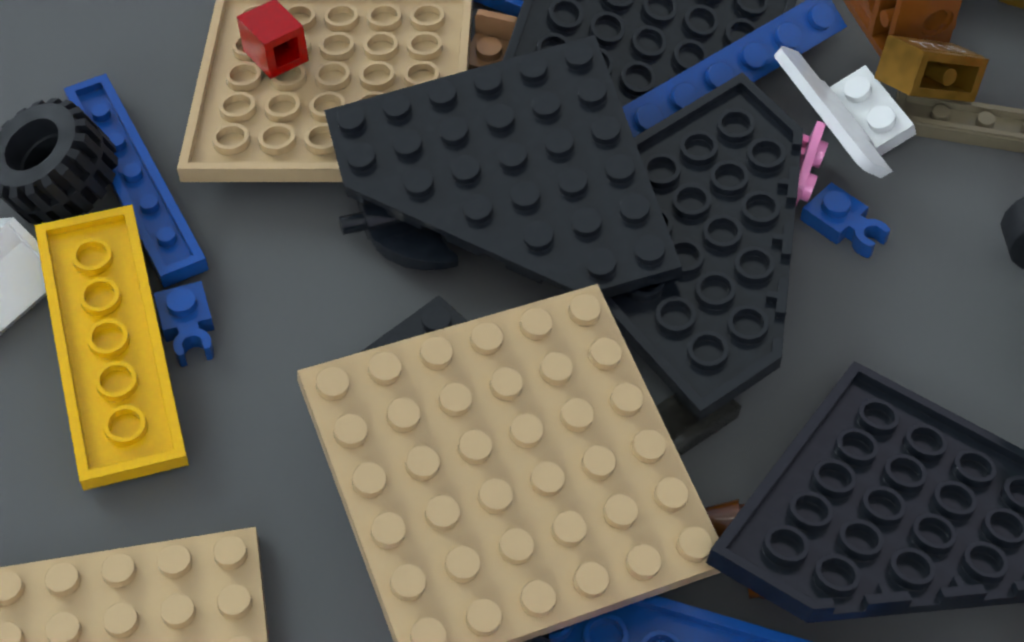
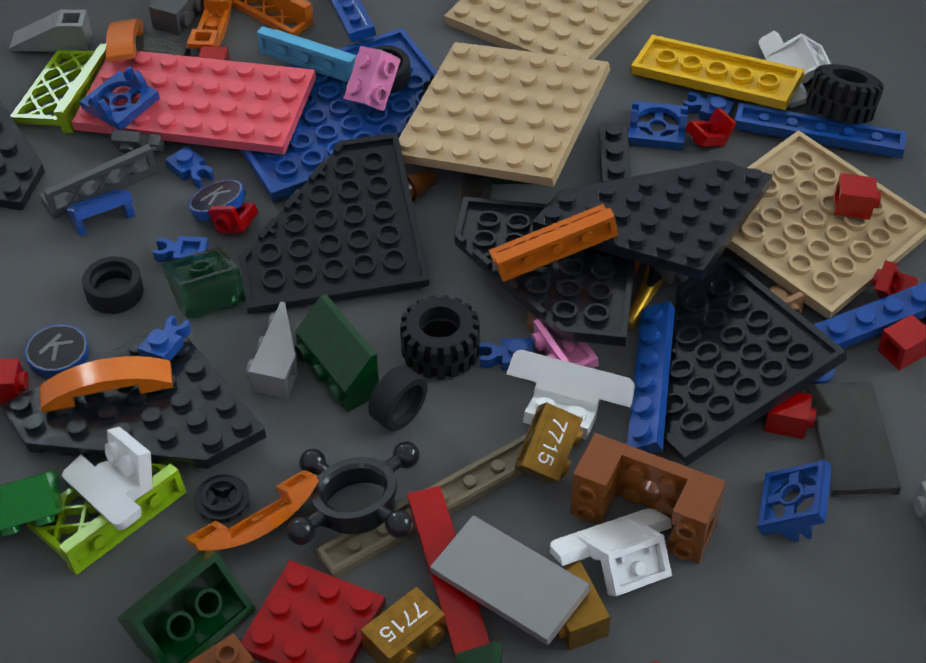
camera: 135 degrees right, 5 degrees down
(249, 276) = (712, 132): none -> red bracket
(262, 321) = (657, 138): none -> blue piece
(711, 189) = (554, 242): none -> orange fence
(929, 244) = (440, 318): none -> black tyre

